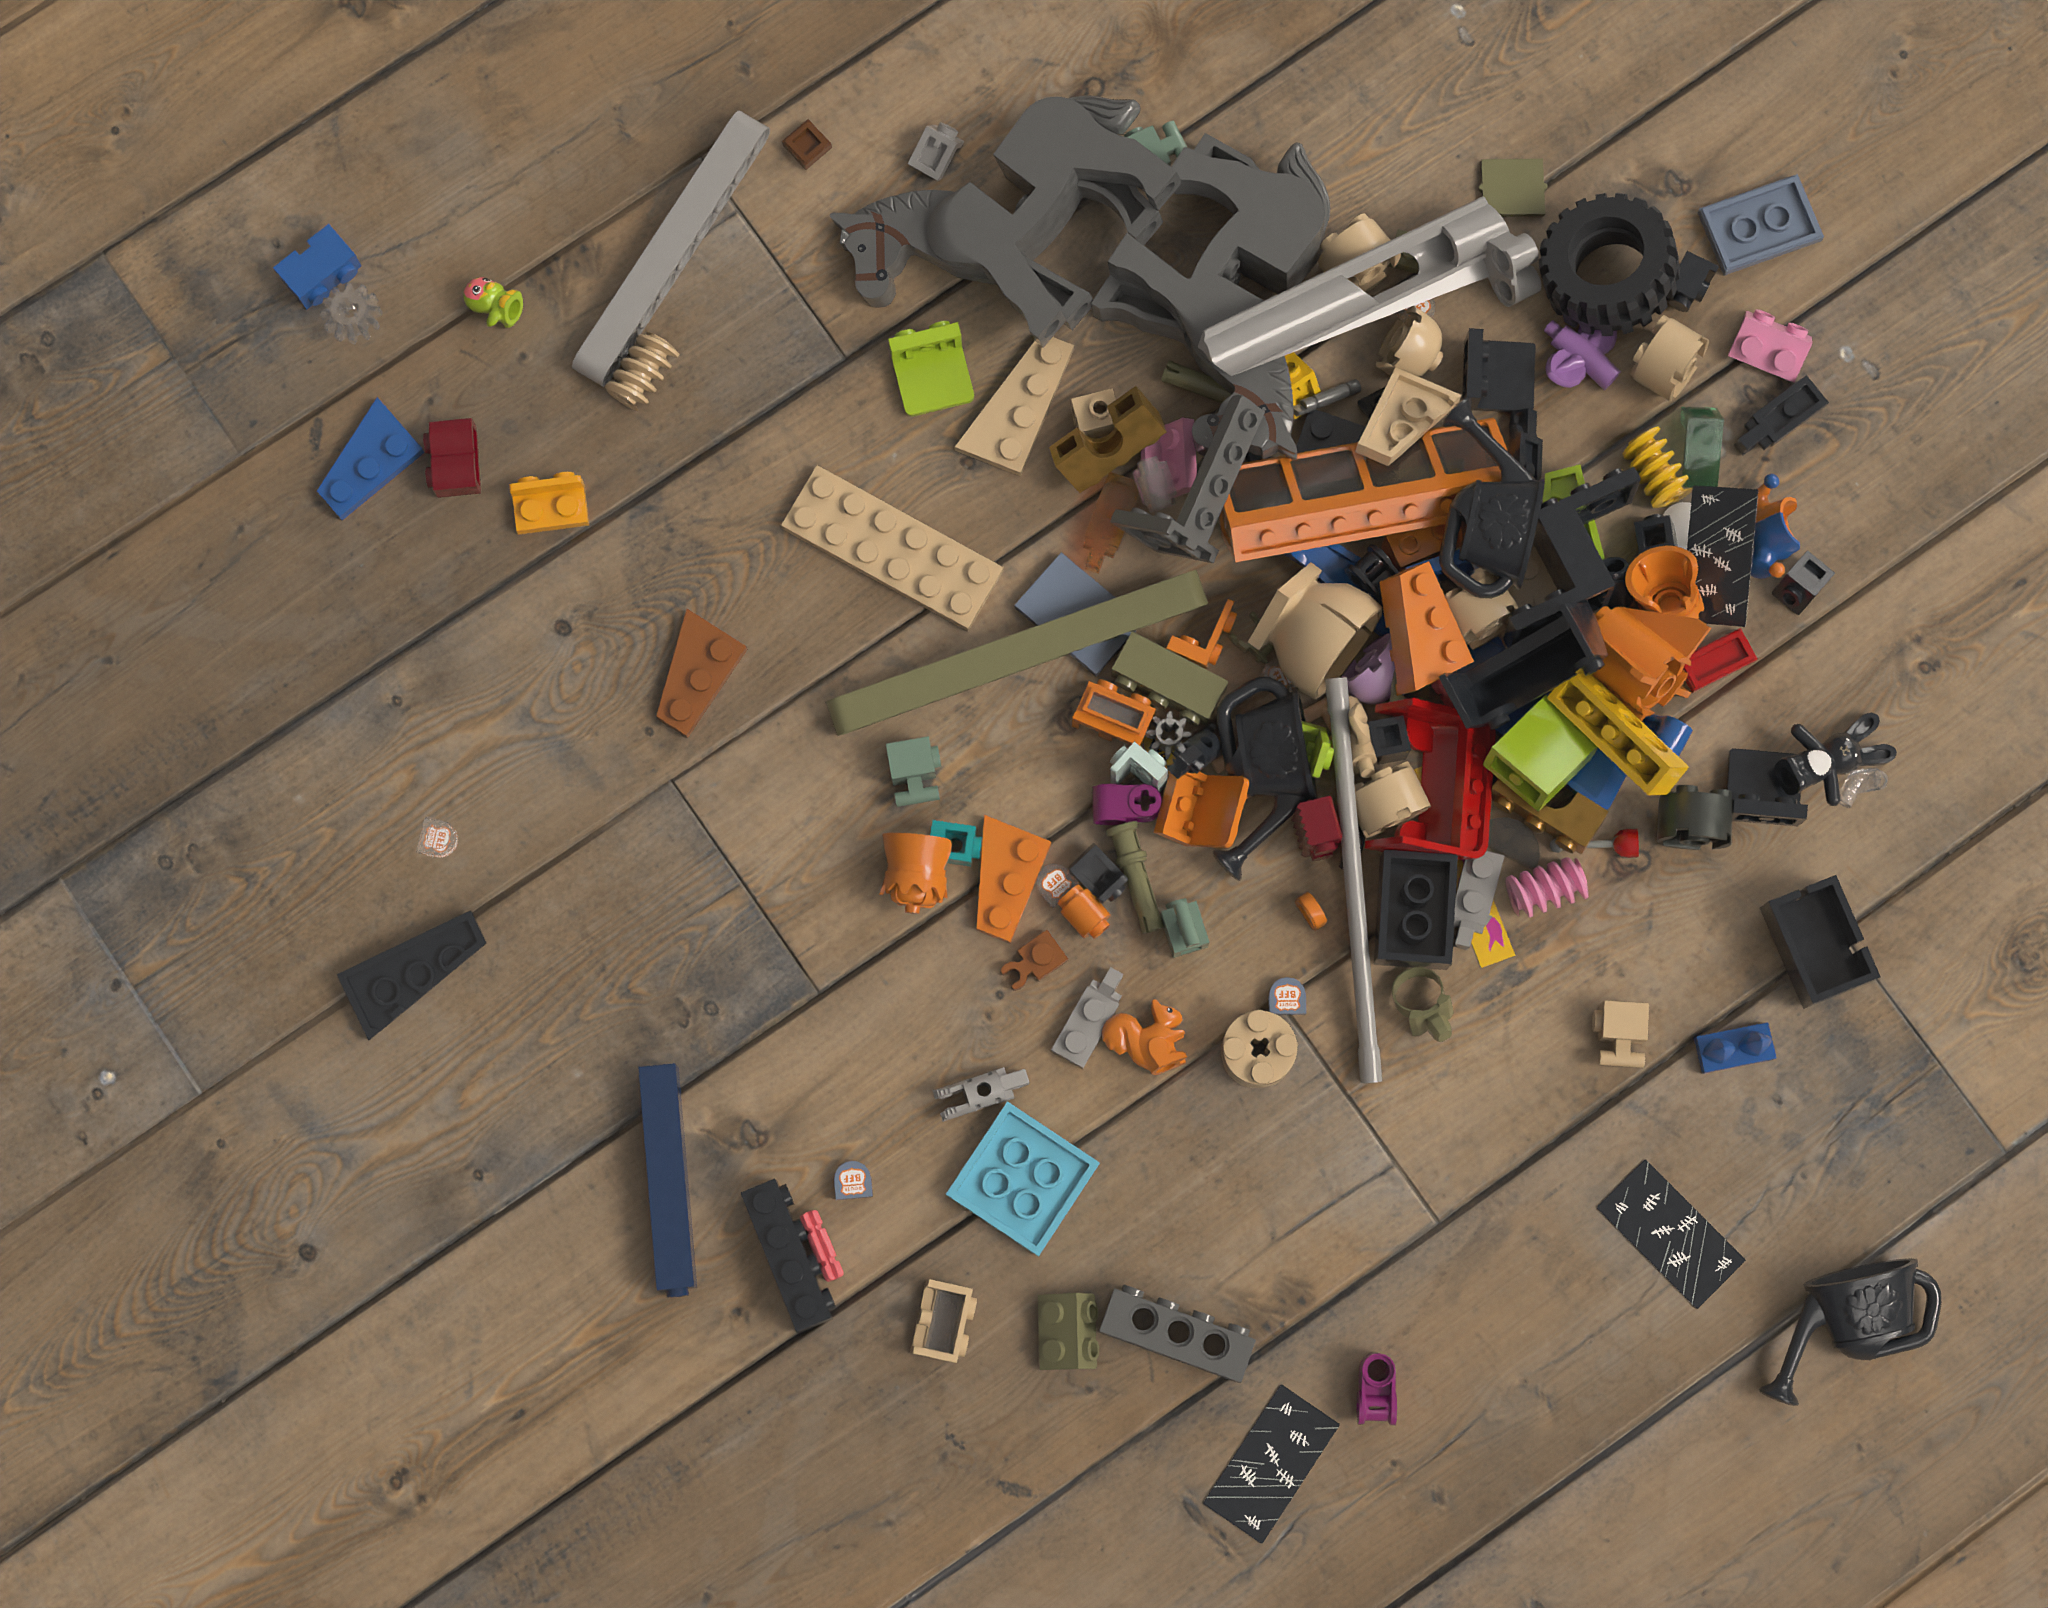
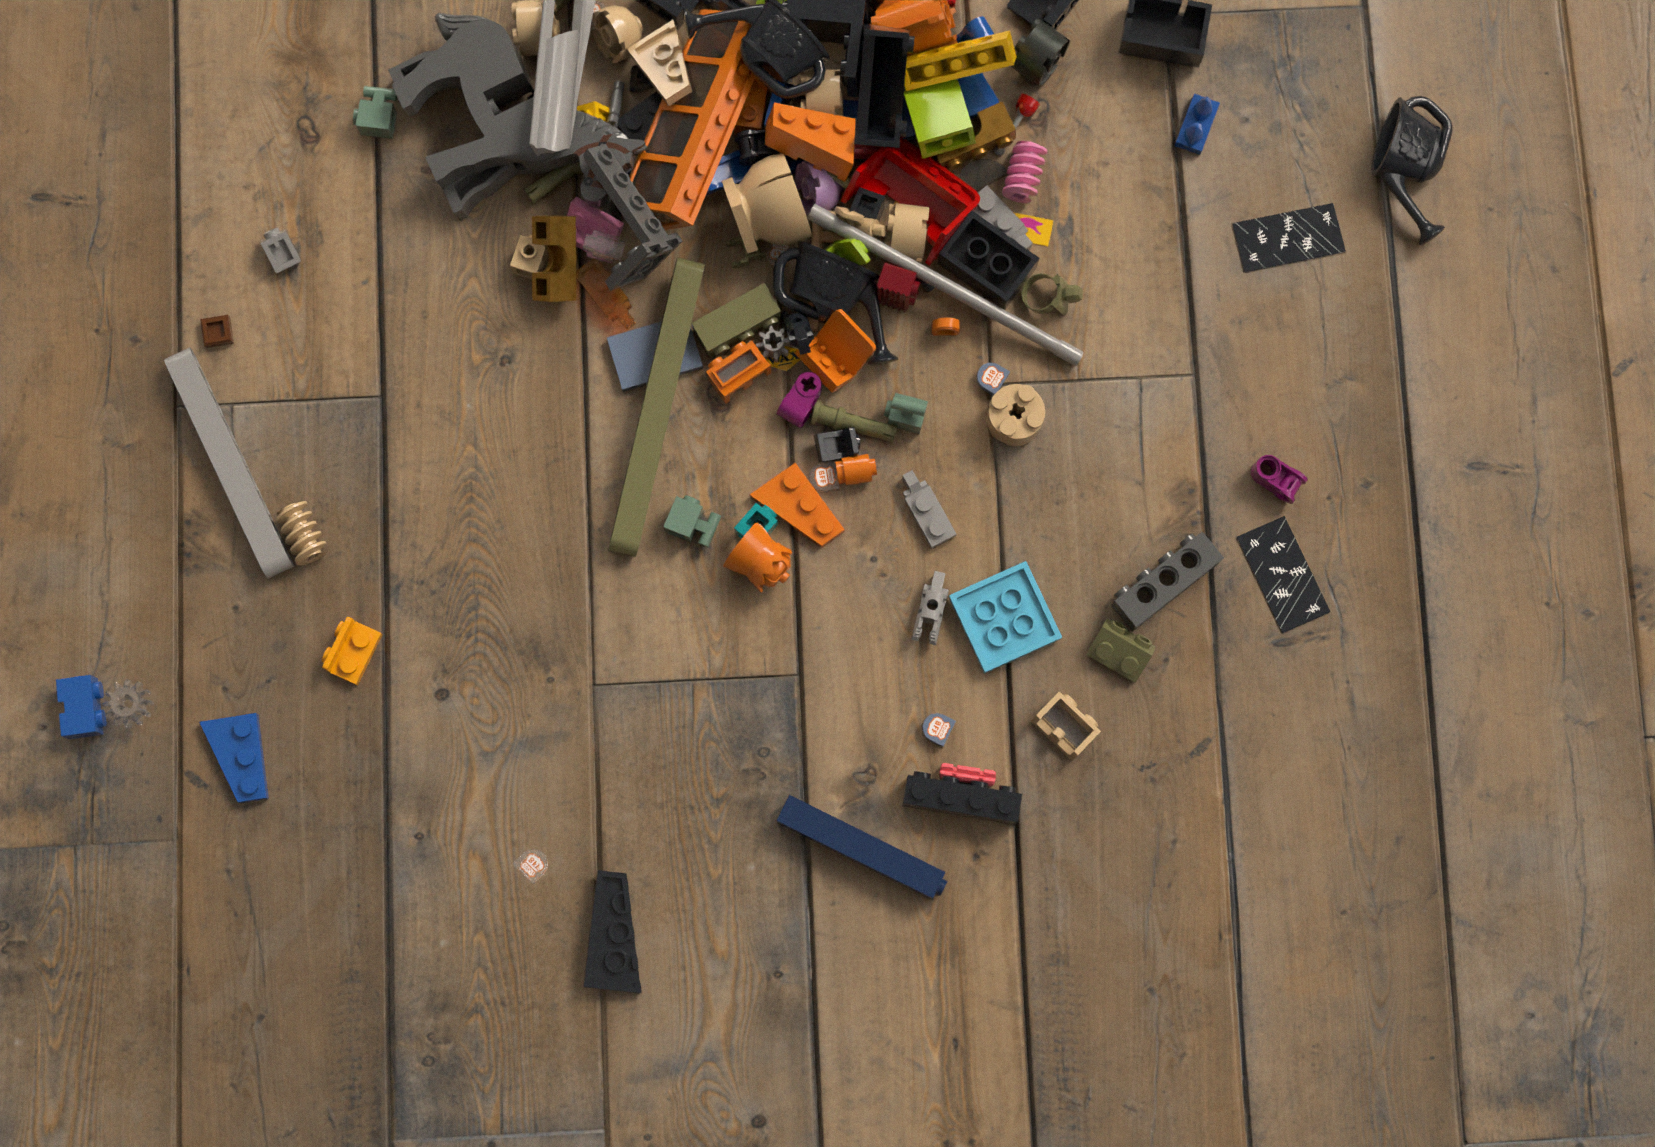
camera: 60 degrees left, 0 degrees up
(453, 458) = (277, 695): dark red brick -> none
(490, 298) = (181, 603): lime animal -> none
(697, 672) = (531, 622): dark orange wing -> none
(892, 548) = (531, 444): tan plate -> none
(931, 368) = (427, 344): lime bracket -> none
(1014, 415) = (493, 309): tan wing -> none
(1039, 957) = (866, 518): dark orange plate -> none
(1054, 156) = (340, 175): dark grey animal -> none
(1145, 765) = (784, 371): light aqua bracket -> none
(1148, 1046) = (969, 482): orange animal -> none
(1190, 648) = (736, 282): orange bracket -> none
(1624, 1025) = (1141, 181): tan brick -> none

